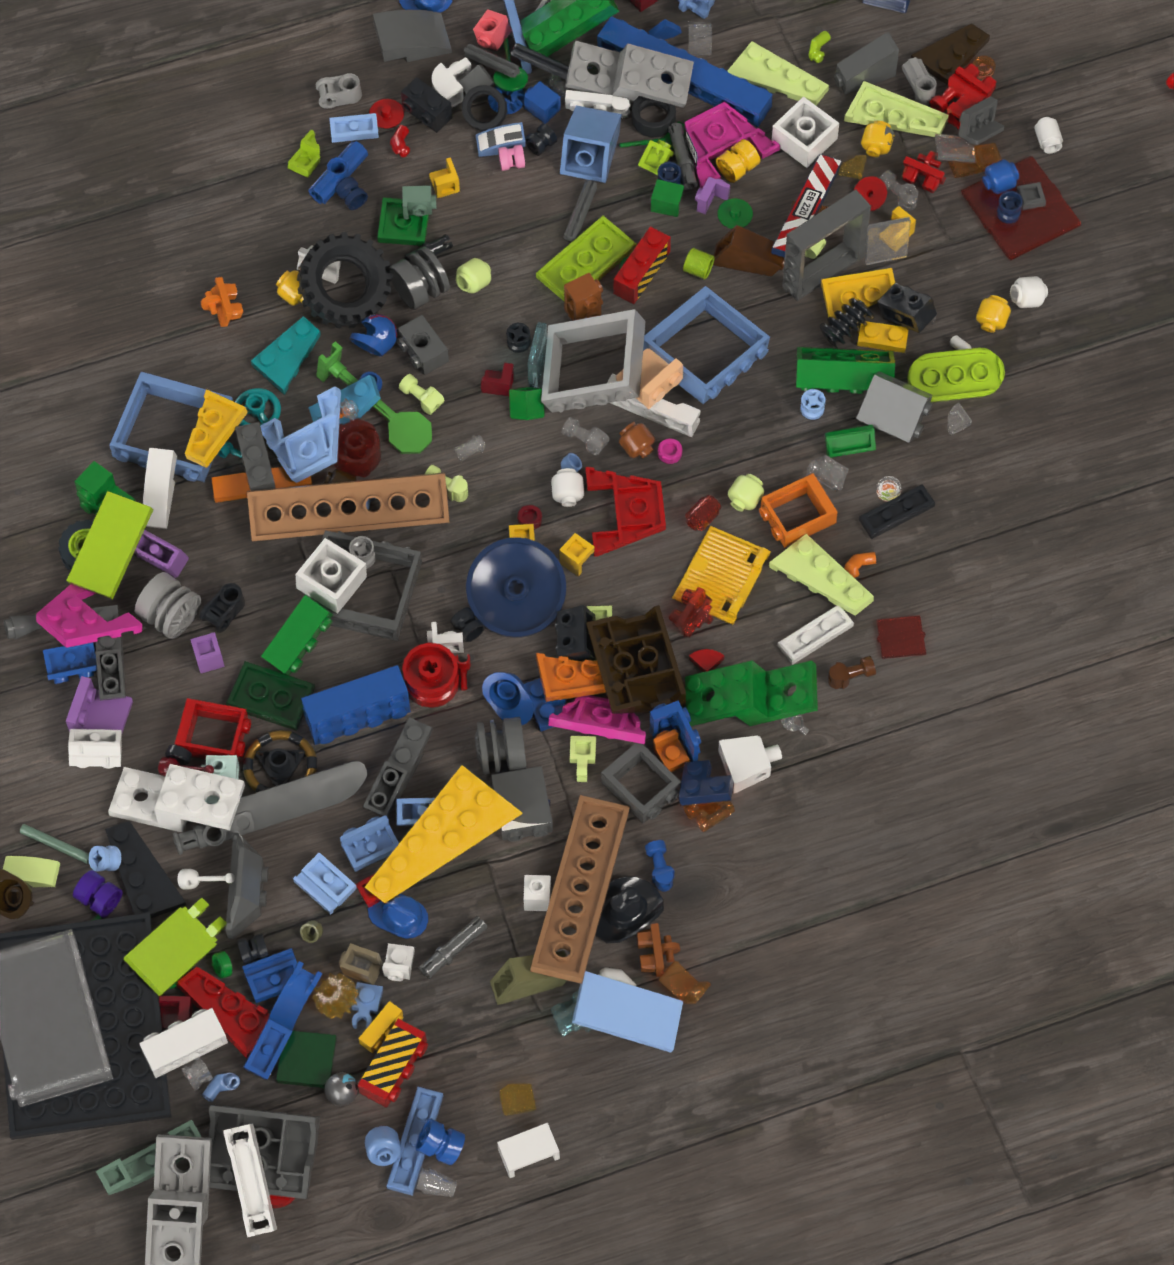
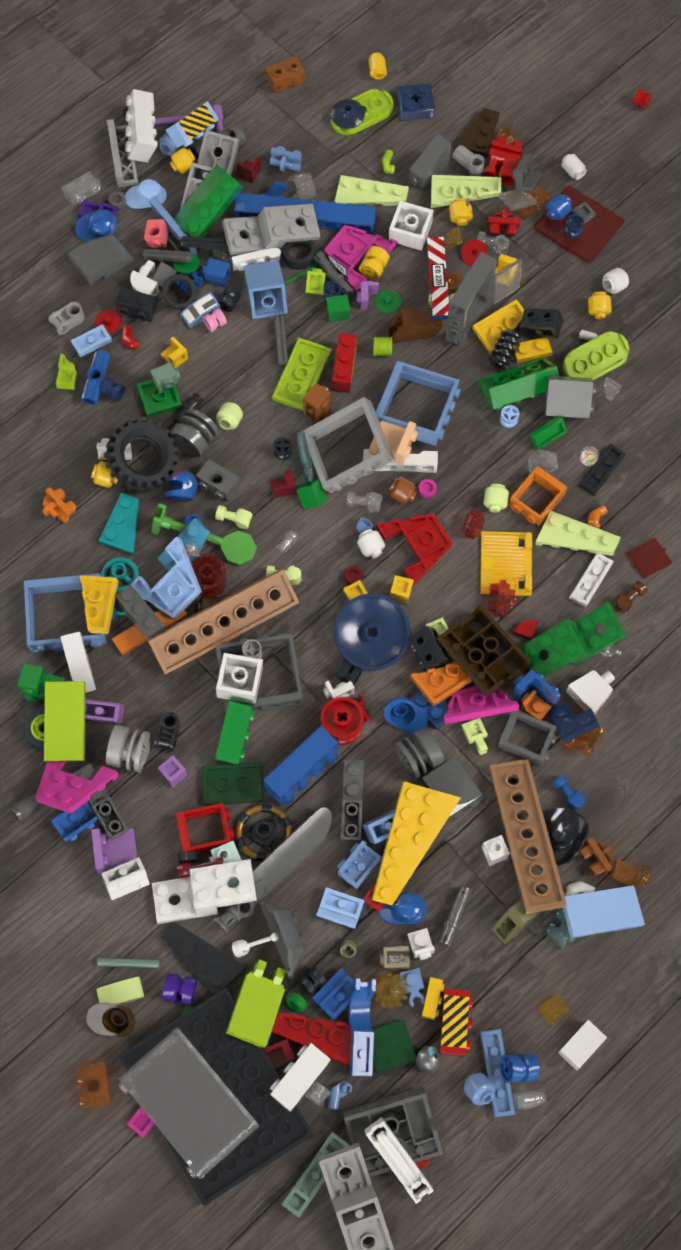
camera: 25 degrees left, 5 degrees up
(105, 858) = (172, 959): light blue wheel -> none

